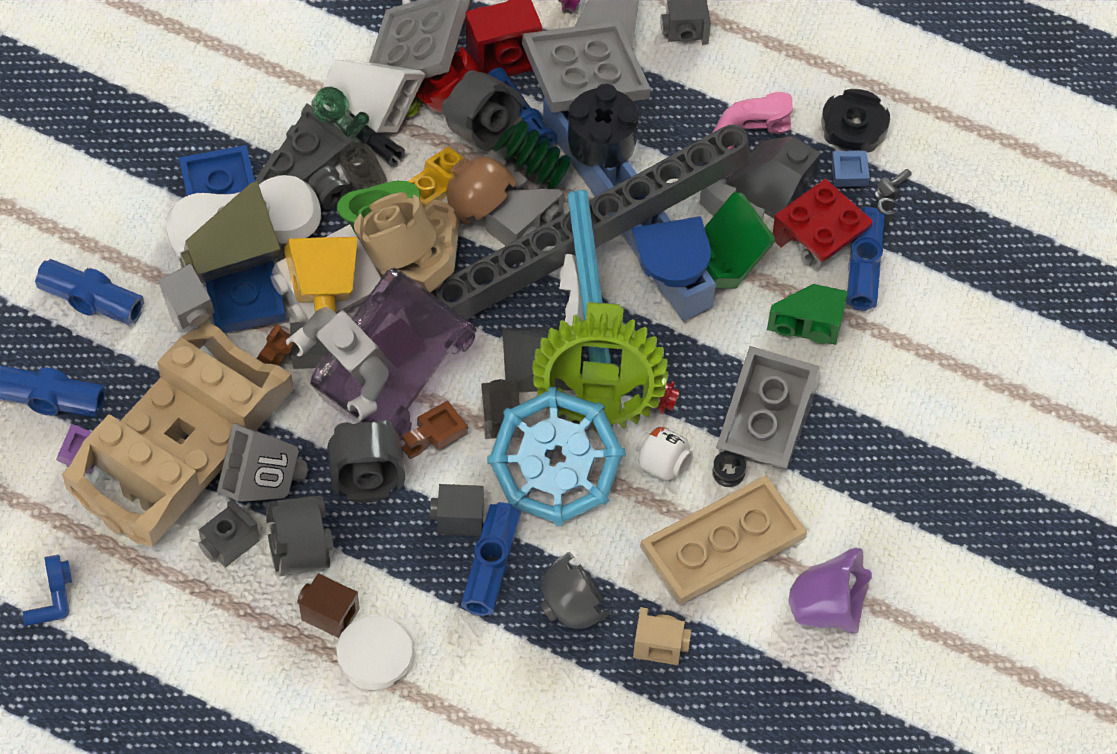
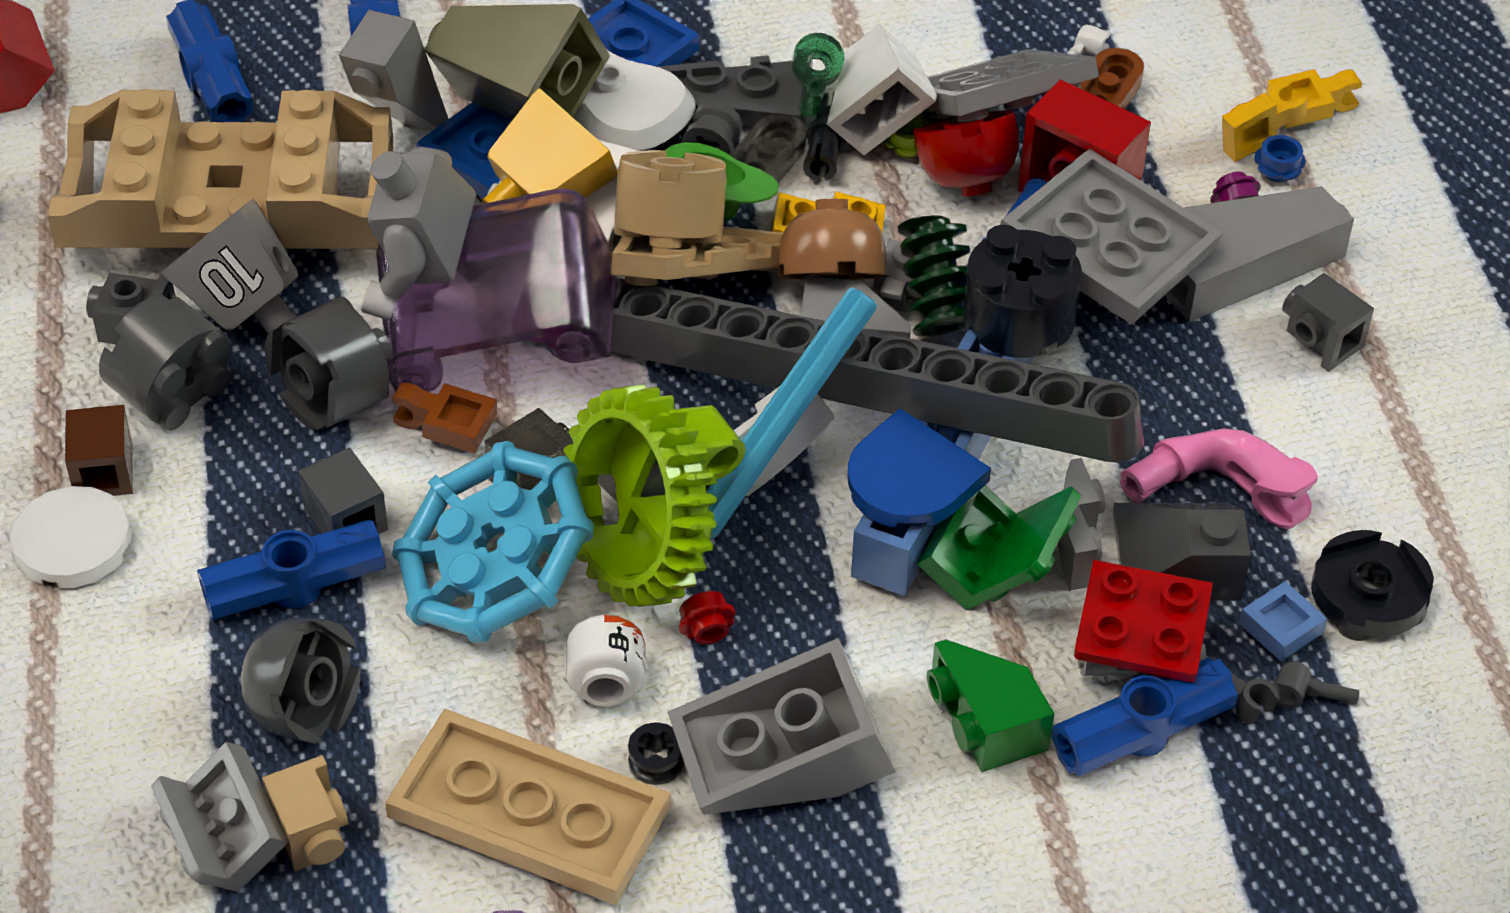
camera: 55 degrees right, 10 degrees down
(482, 109) = (948, 165): dark grey brick -> none
(635, 675) = (221, 820): none -> light grey bracket

